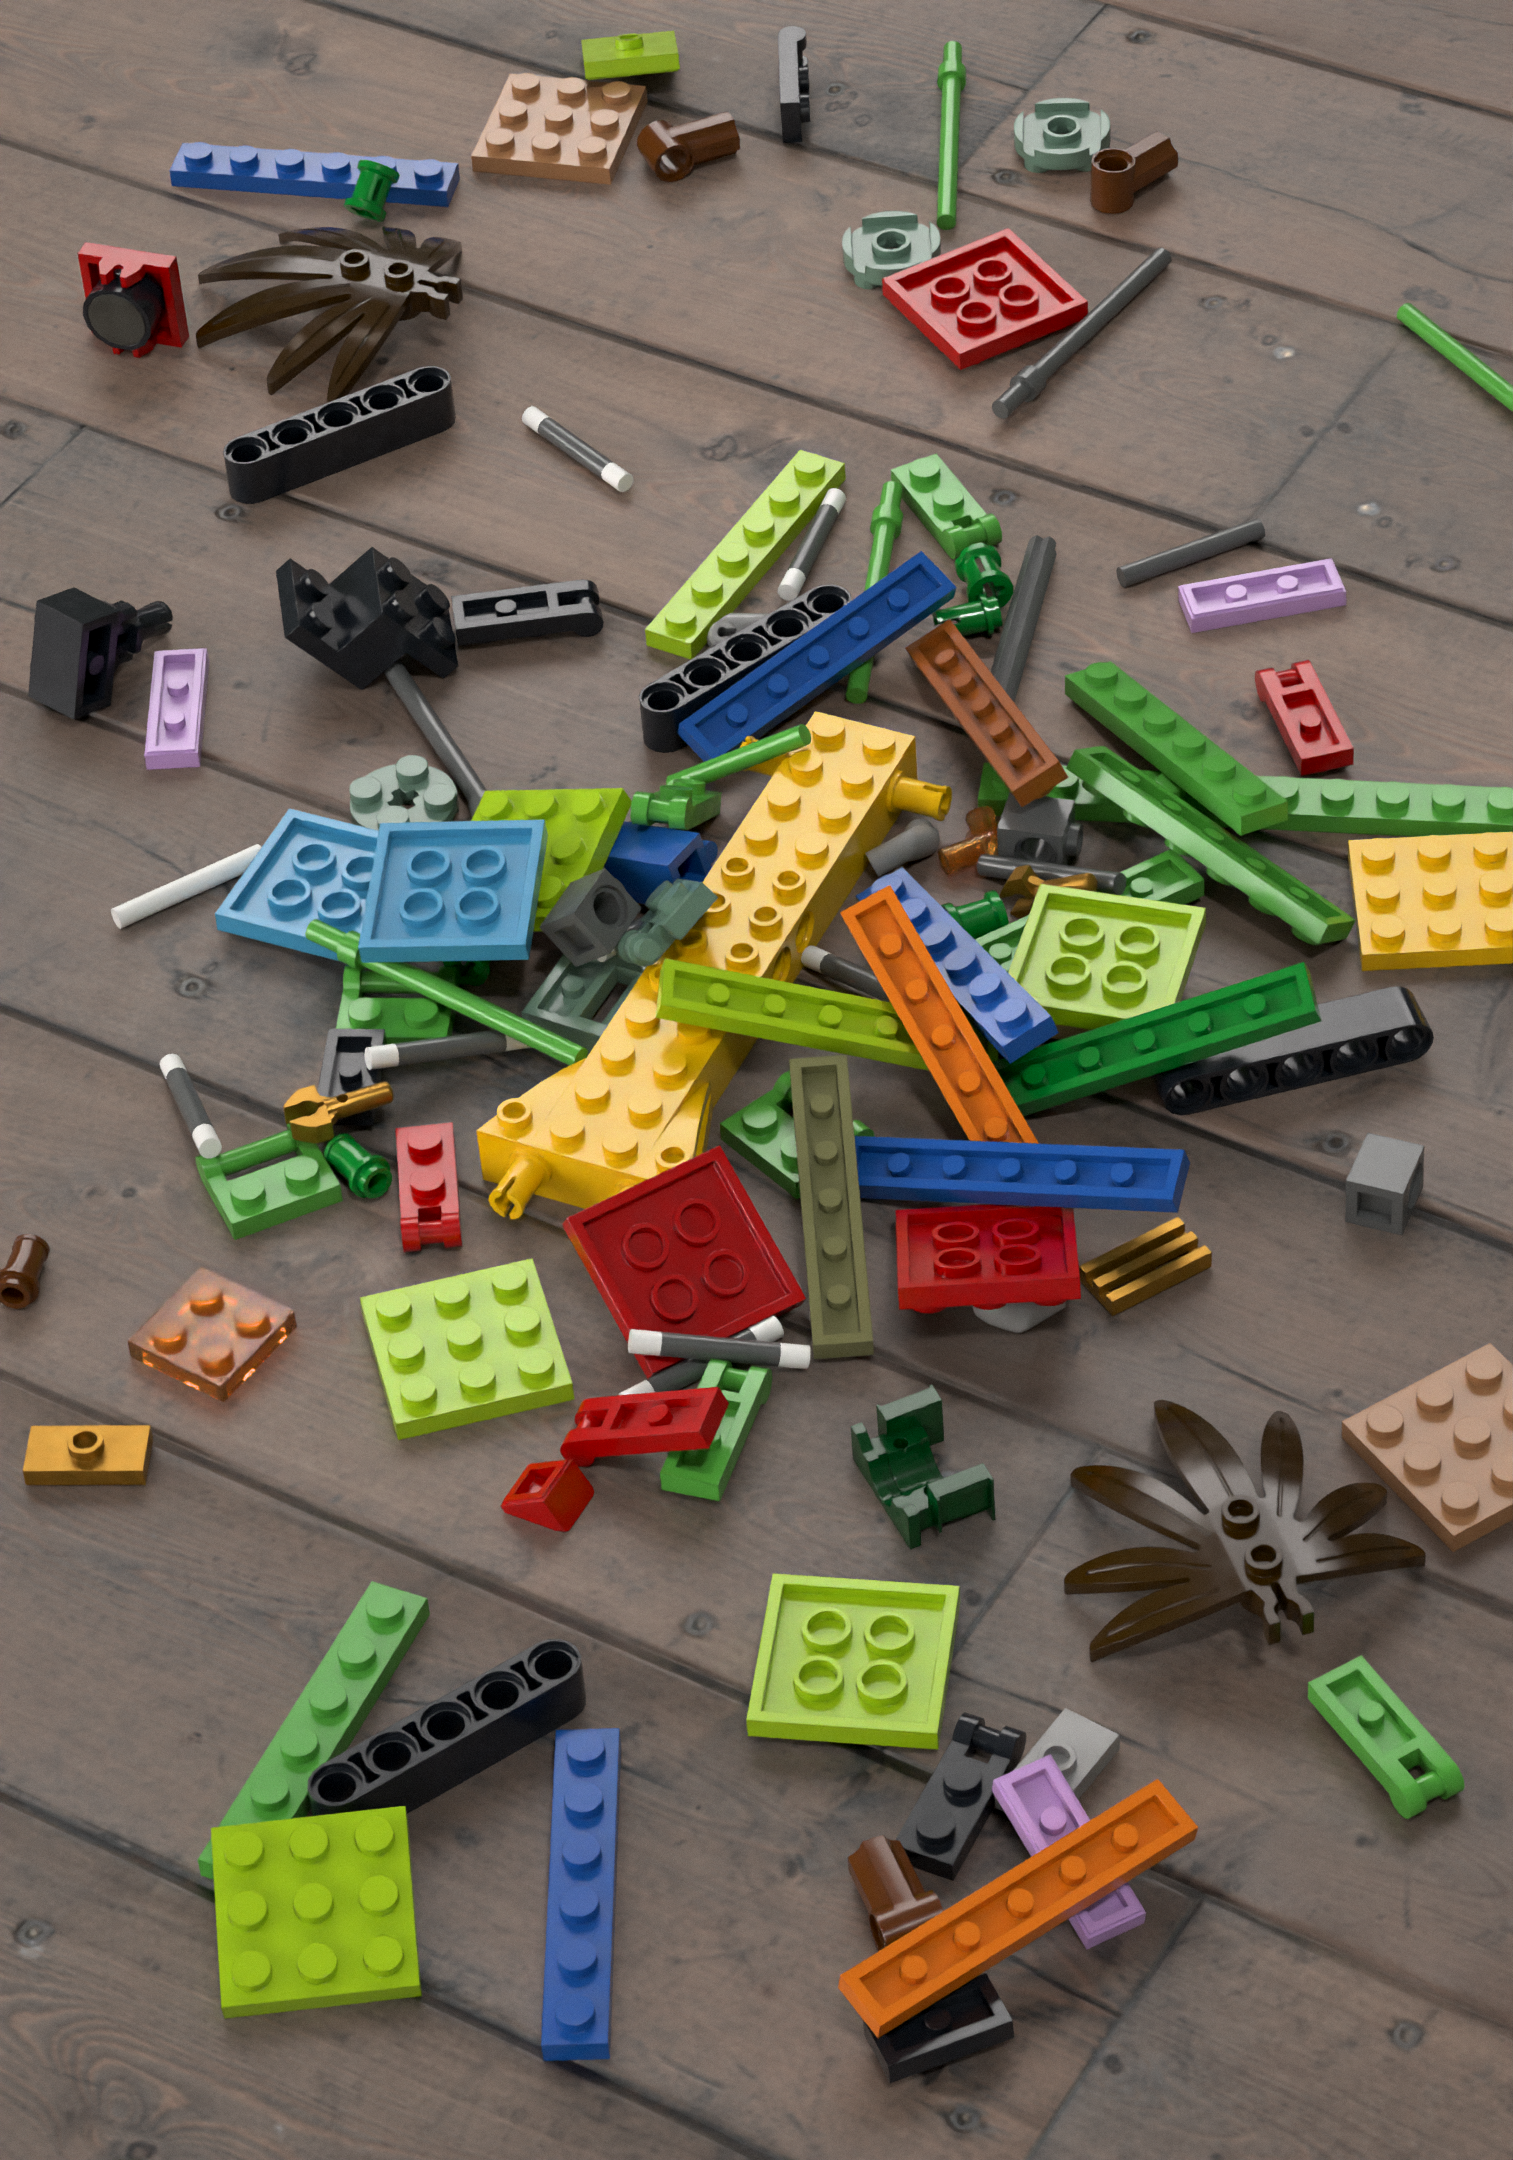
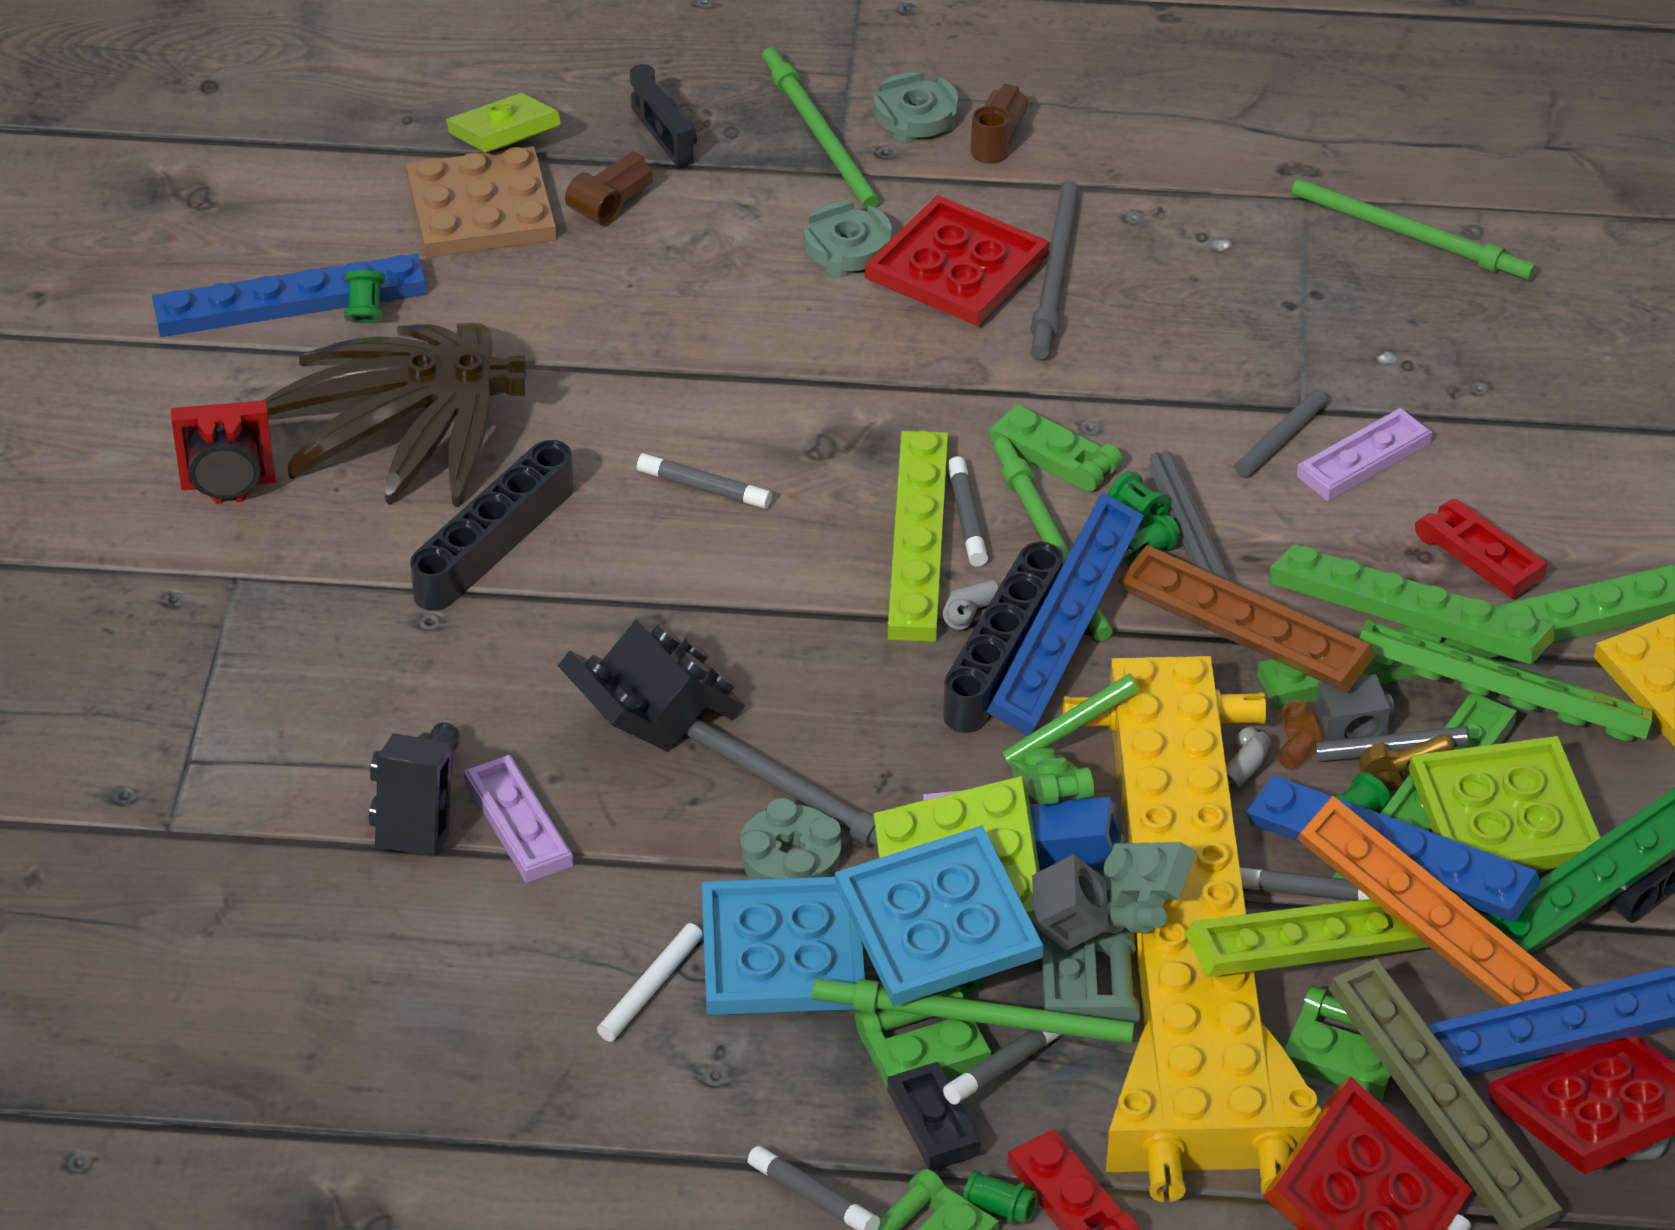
camera: 30 degrees left, 0 degrees up
(314, 1115) = (956, 1172): pearl gold bar -> none
(528, 612) = (773, 639): black plate -> none

